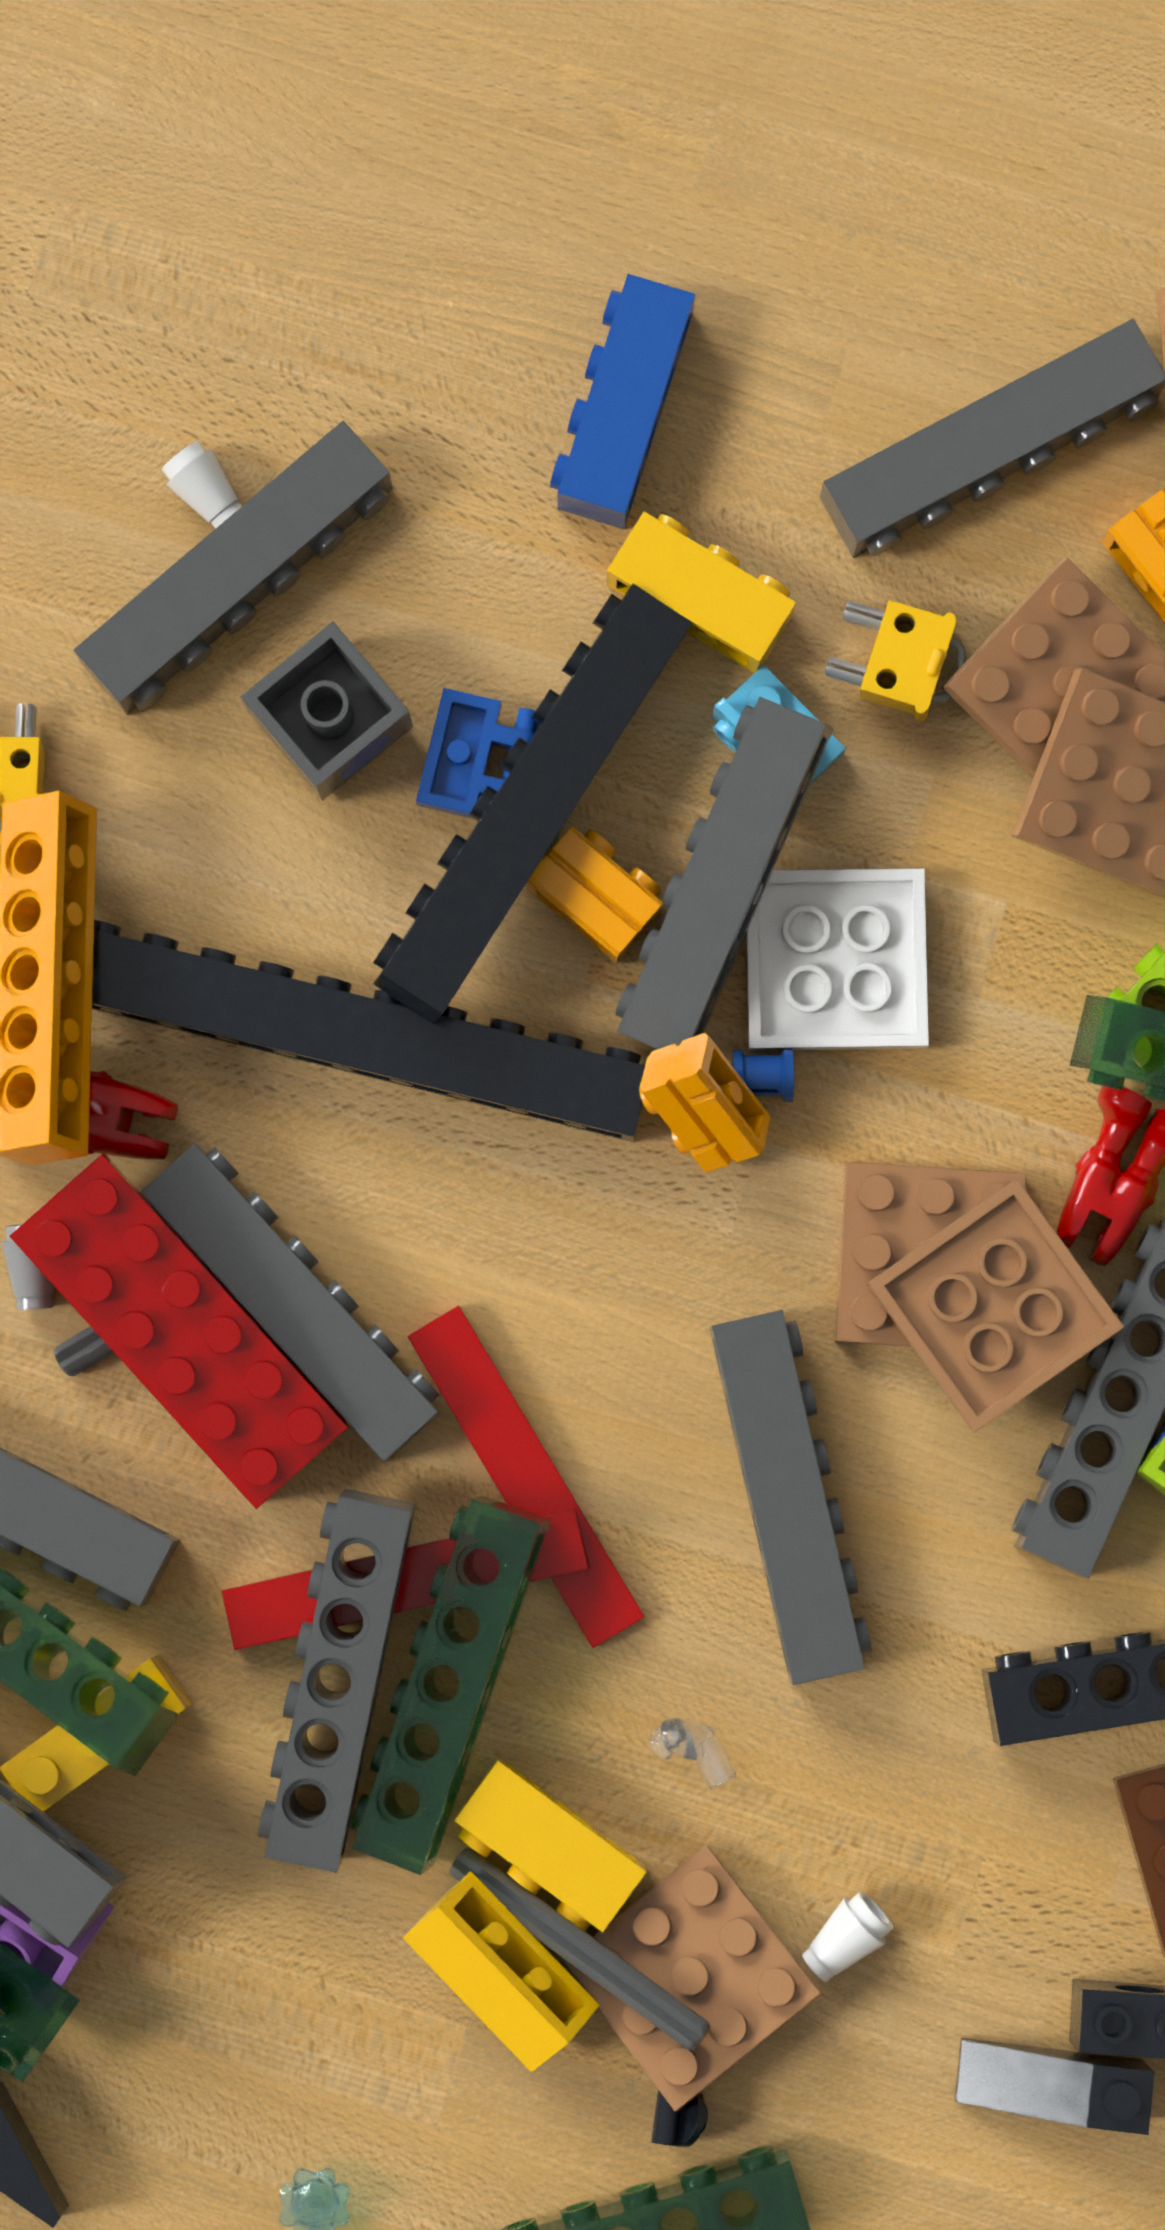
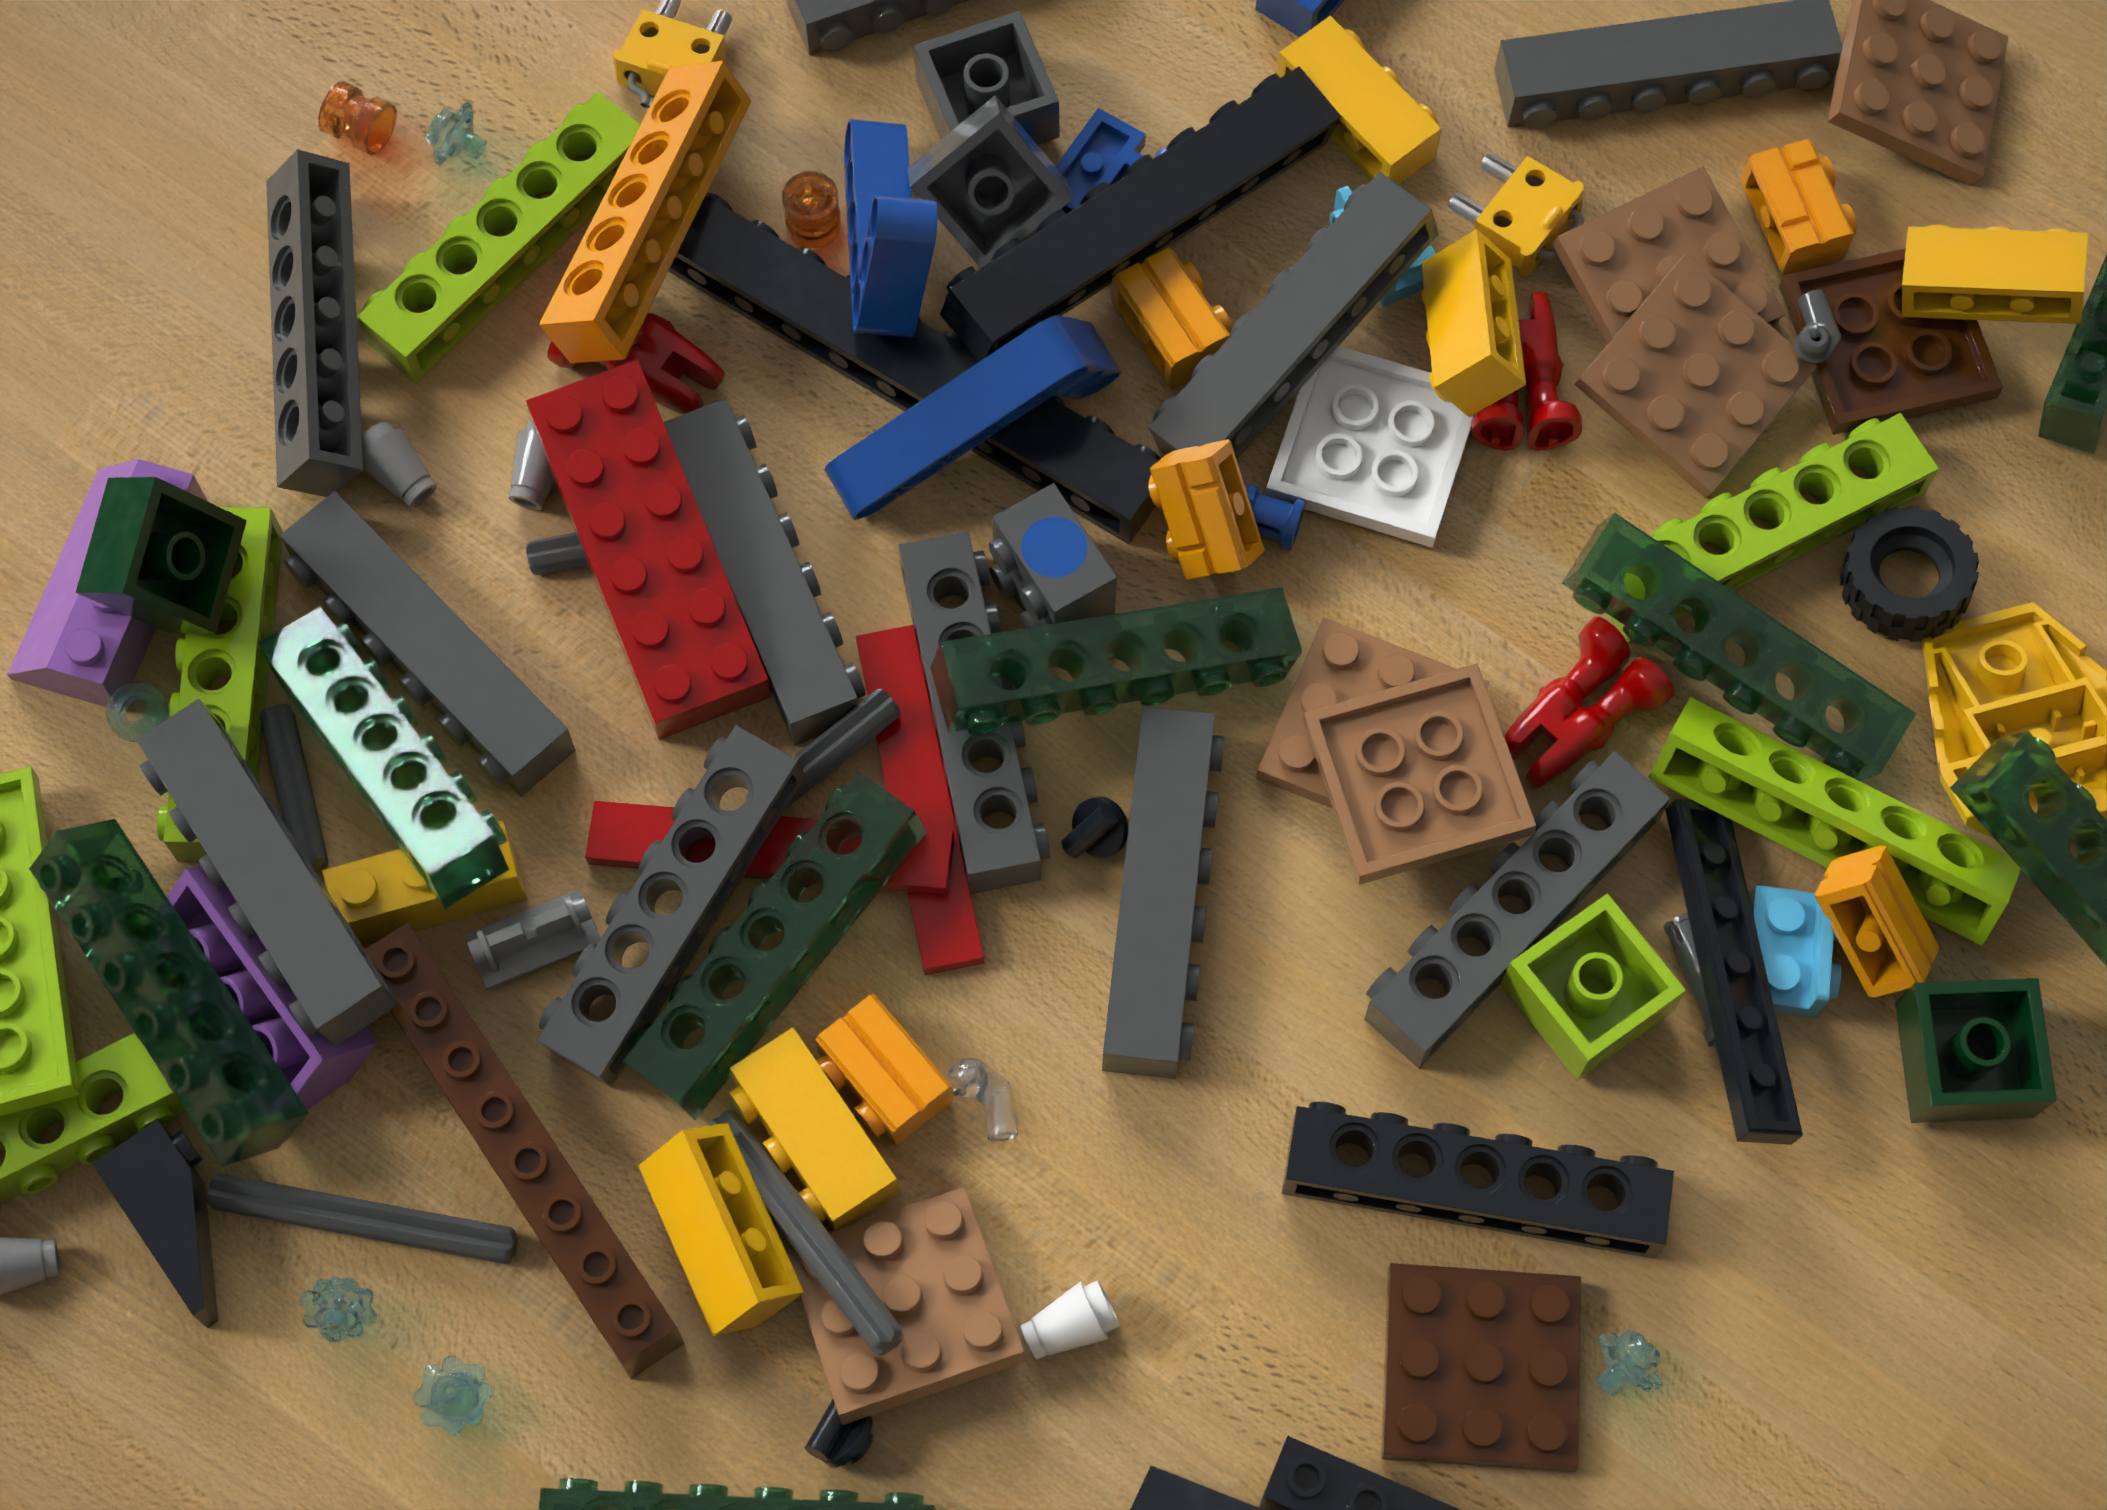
camera: 20 degrees right, 15 degrees down
(164, 2068) = (362, 1218): none -> dark grey axle
(177, 2164) = (338, 1308): none -> clear light blue plant
(203, 907) = (811, 209): none -> clear orange wheel
(215, 1746) = (532, 939): none -> light grey hinge
(289, 1961) = (524, 1155): none -> reddish brown brick
(309, 959) = (887, 230): none -> blue beam
(372, 827) = (989, 181): none -> dark grey brick
(436, 1449) = (845, 738): none -> dark grey axle
(448, 1077) = (1045, 361): none -> blue beam
(453, 1252) = (990, 855): none -> dark grey brick
(577, 1217) = (1049, 562): none -> dark grey brick
(591, 1763) = (883, 1071): none -> light orange brick
(706, 1452) = (1097, 829): none -> black plate
(790, 1196) = (1252, 620): none -> clear green brick
(896, 812) = (1472, 324): none -> yellow brick
(960, 814) = (1549, 421): none -> red piece

